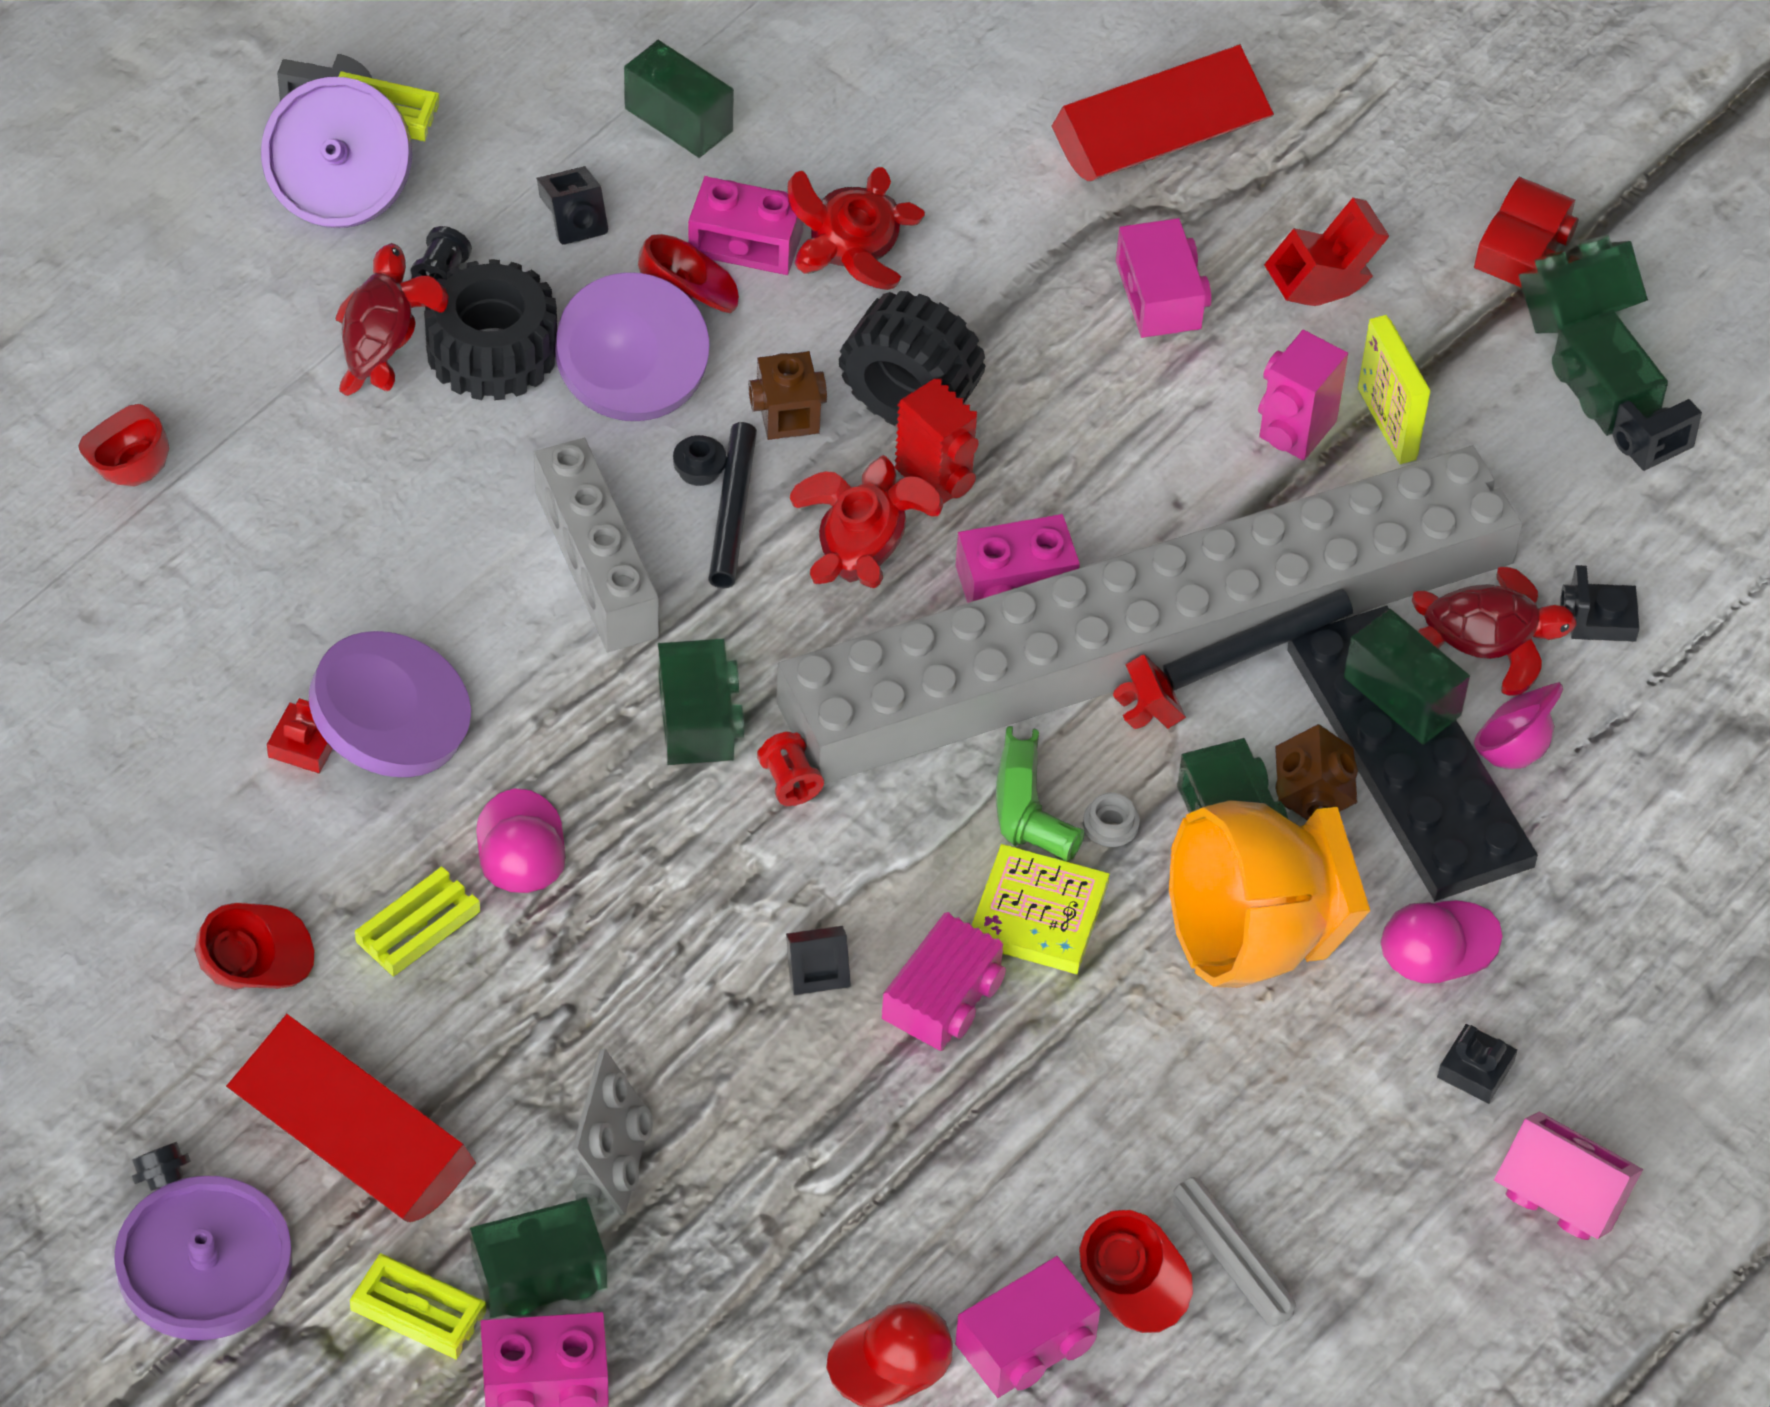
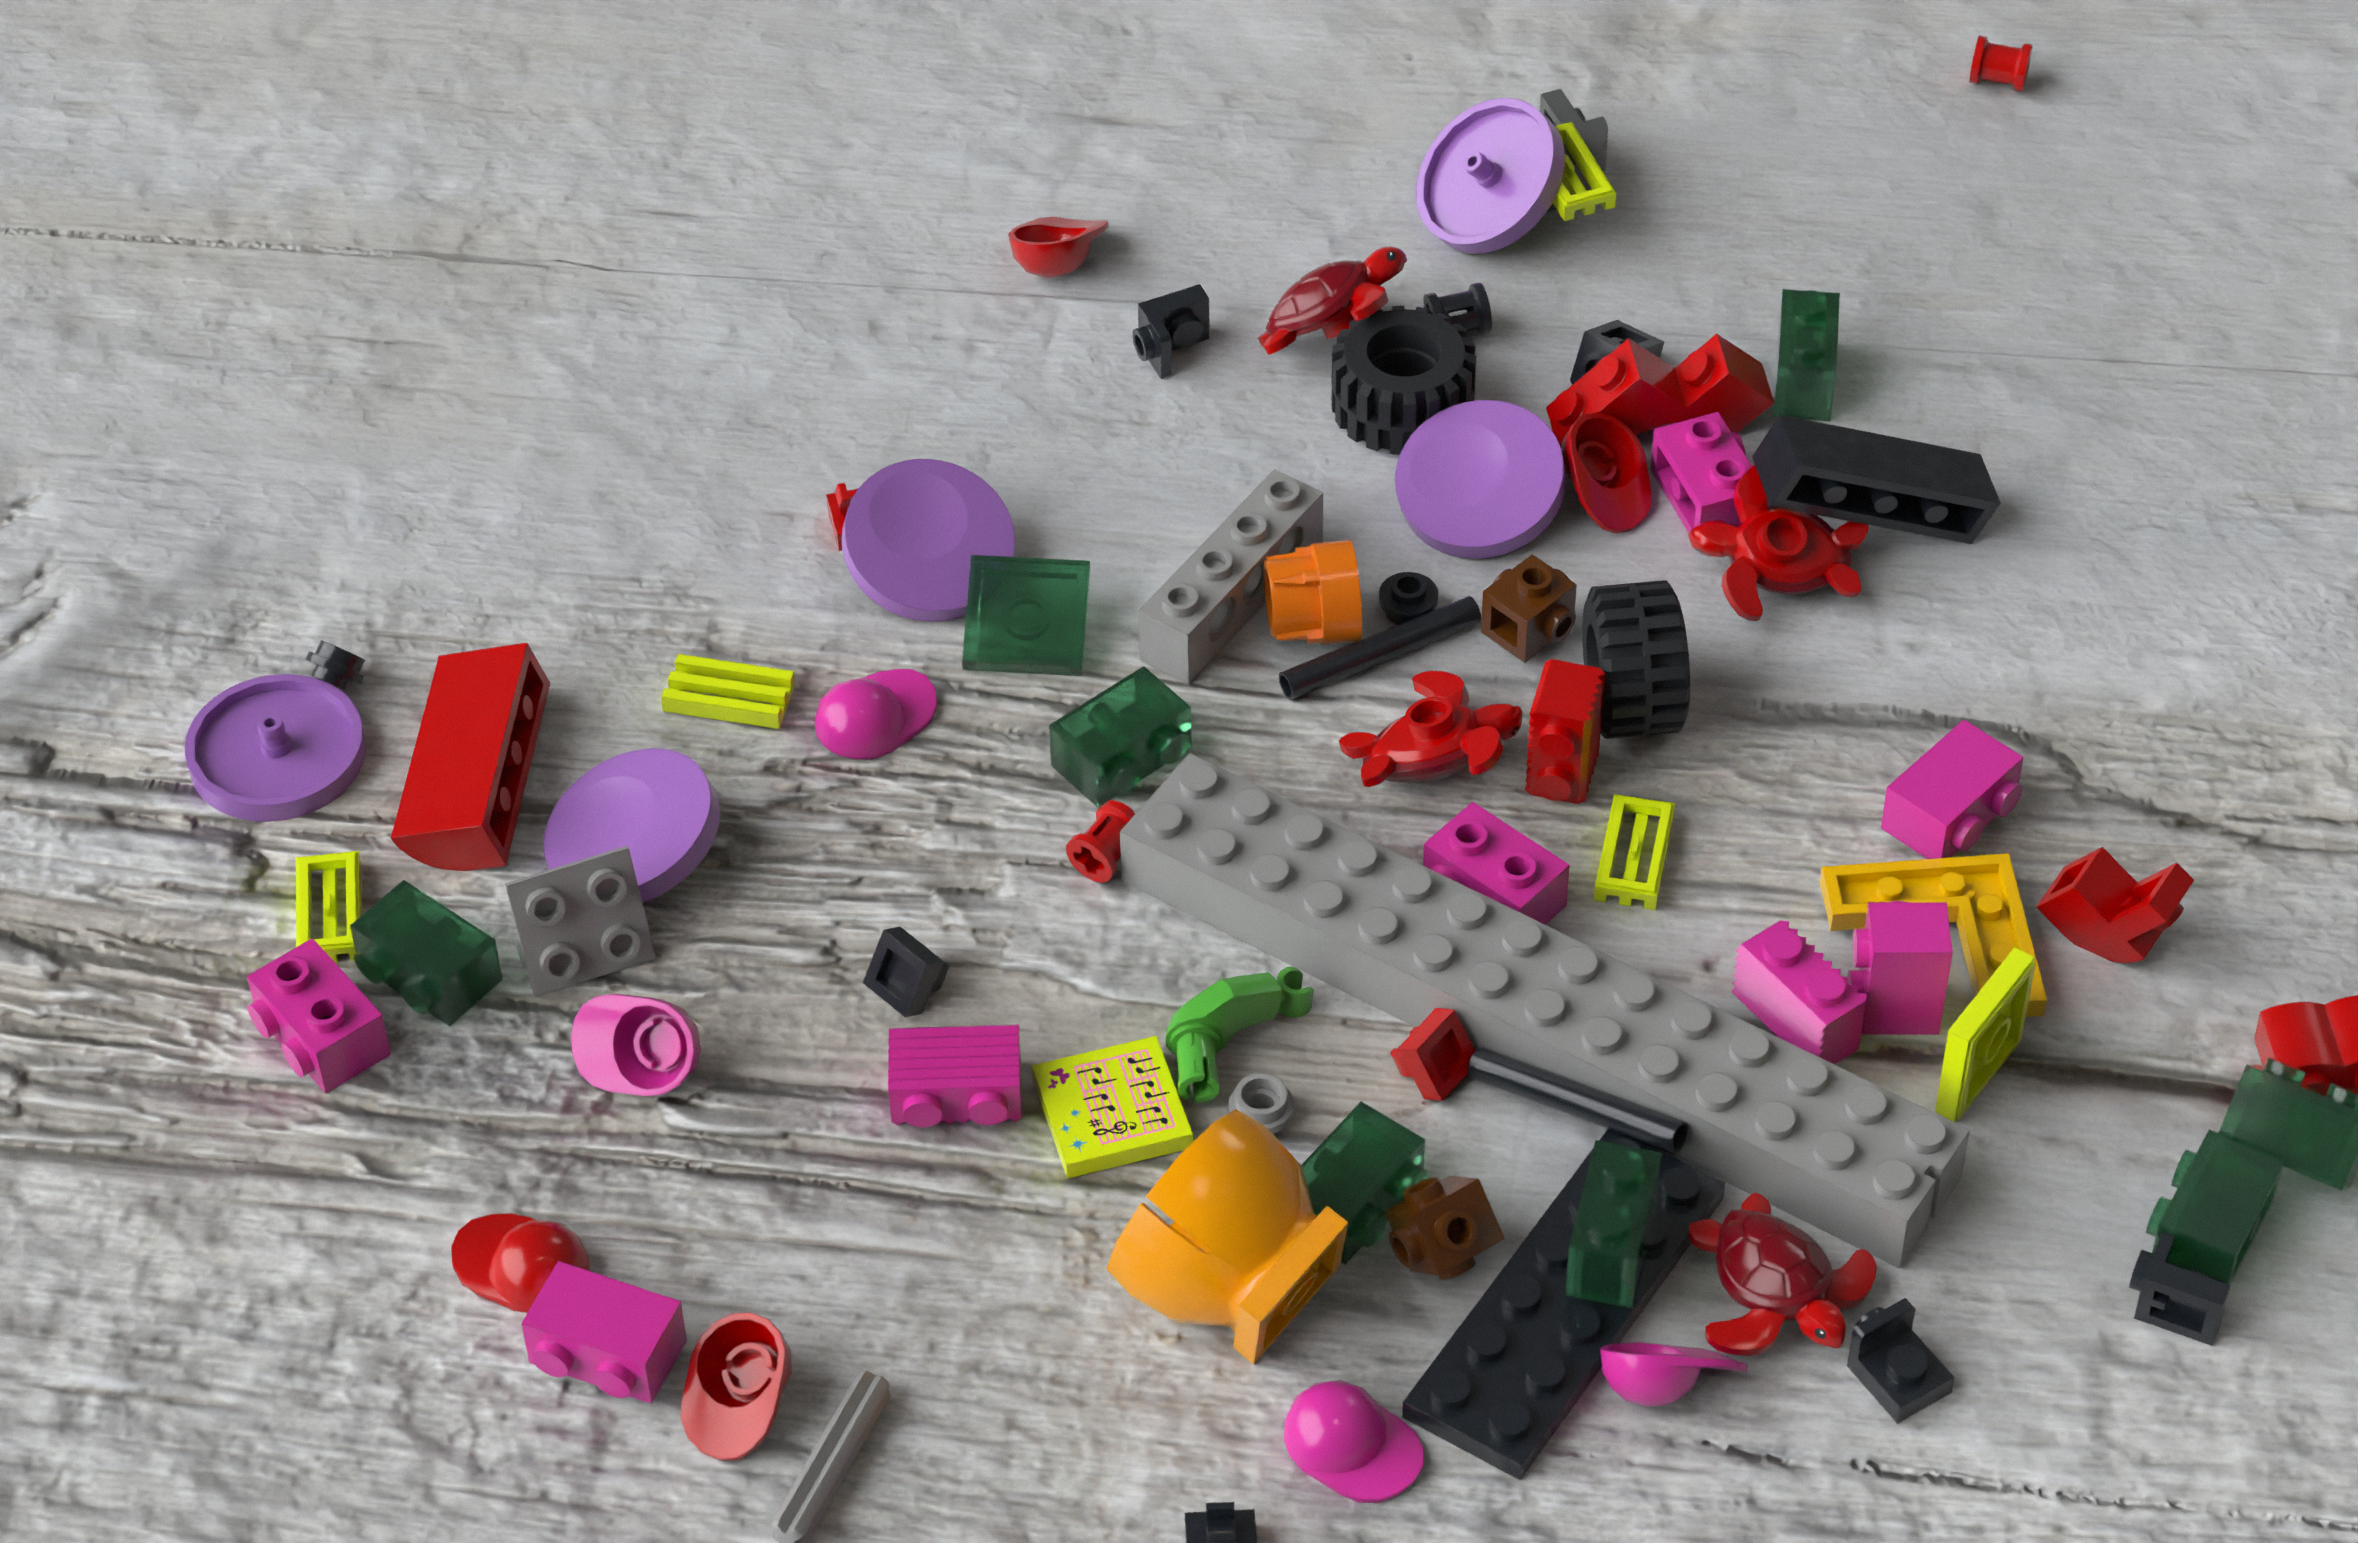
camera: 60 degrees right, 5 degrees down
(254, 947) = (603, 599): red cap -> none
(291, 435) = (1171, 324): none -> black bracket
(518, 689) = (1026, 615): none -> clear green tile
(524, 1052) = (639, 800): none -> medium lavender piece
(641, 202) = (1652, 393): none -> red arch
(671, 502) = (1314, 594): none -> orange piece
(753, 1167) = (634, 1044): none -> cap
(858, 133) = (1875, 479): none -> black brick
(1042, 483) = (1628, 887): none -> neon yellow tile
(1161, 114) = (2170, 689): red brick -> none
(1232, 335) = (1978, 895): none -> yellow plate
(1266, 465) = (1799, 993): none -> dark pink brick

